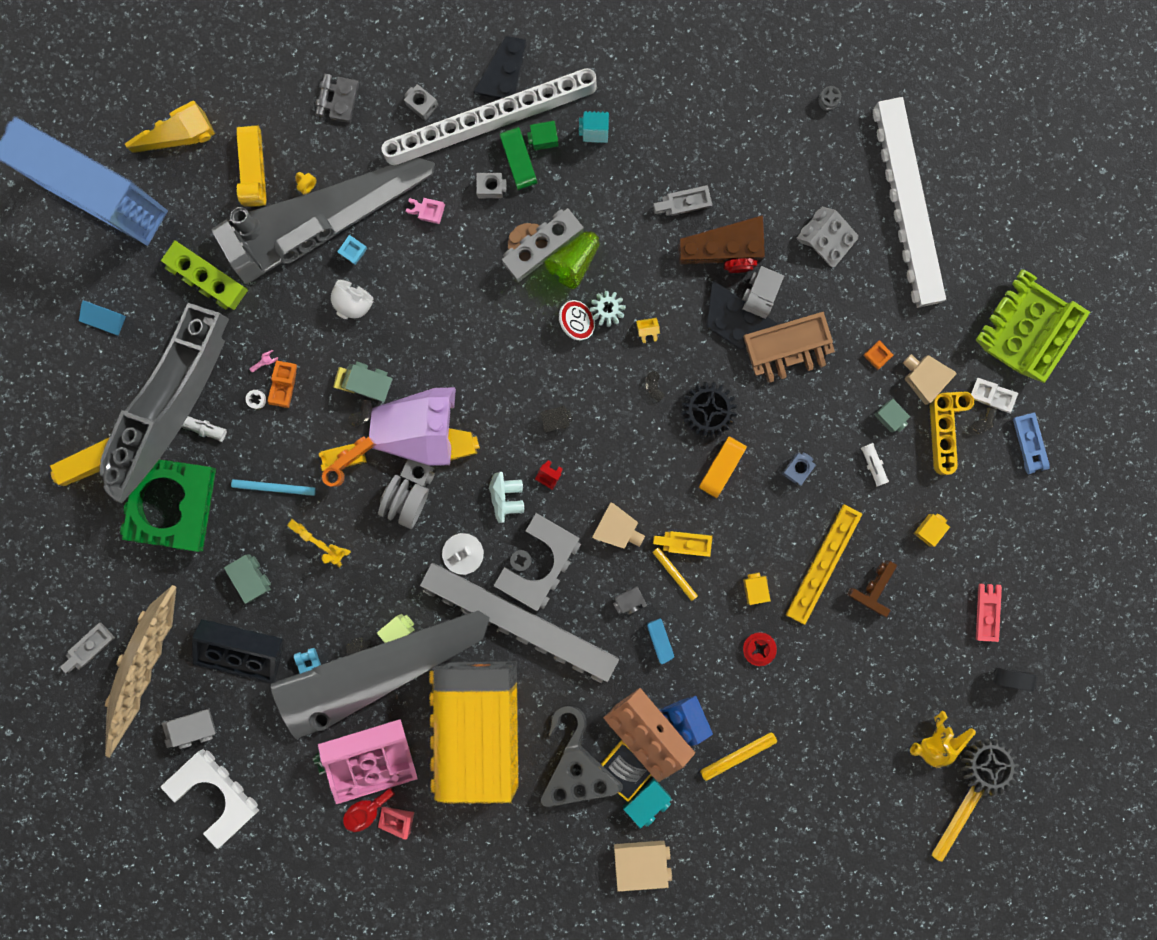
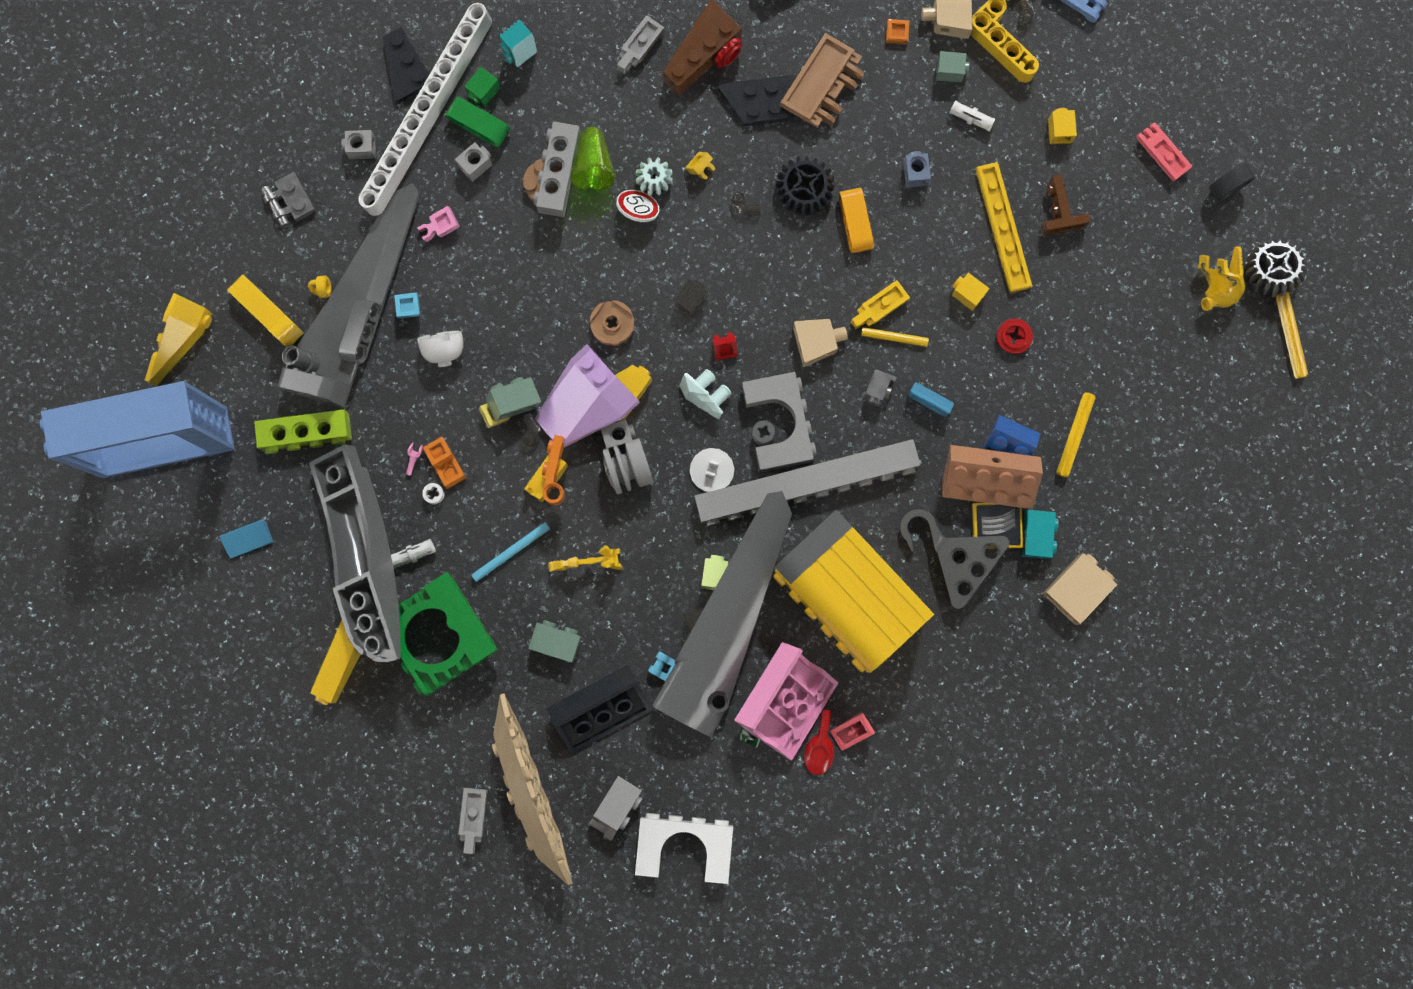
camera: 45 degrees left, 5 degrees down
(490, 377) = (610, 310): none -> medium nougat plate
(763, 292) = (764, 58): light grey hinge -> none

